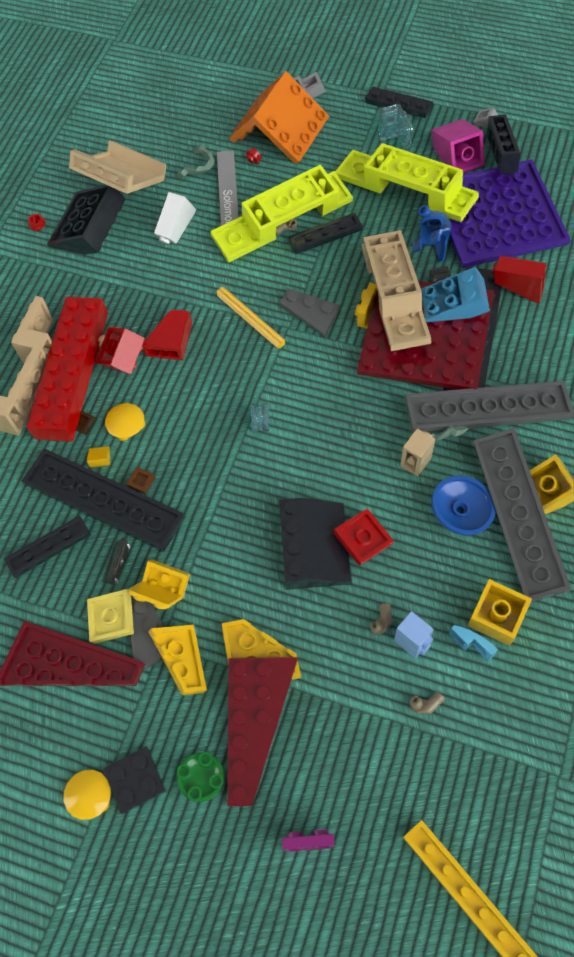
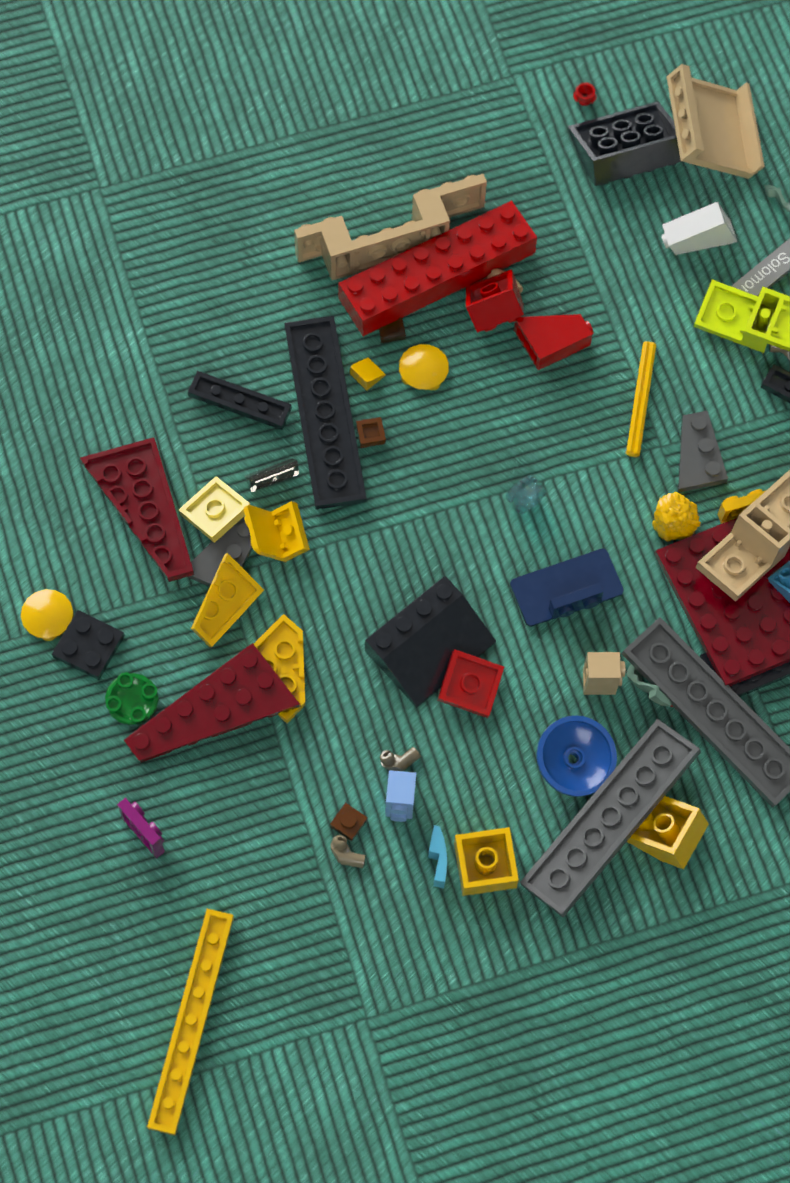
camera: 45 degrees right, 5 degrees up
(339, 438) = (566, 587): none -> dark blue bracket
(343, 346) = (675, 517): none -> yellow hair
(403, 686) = (348, 822): none -> reddish brown plate

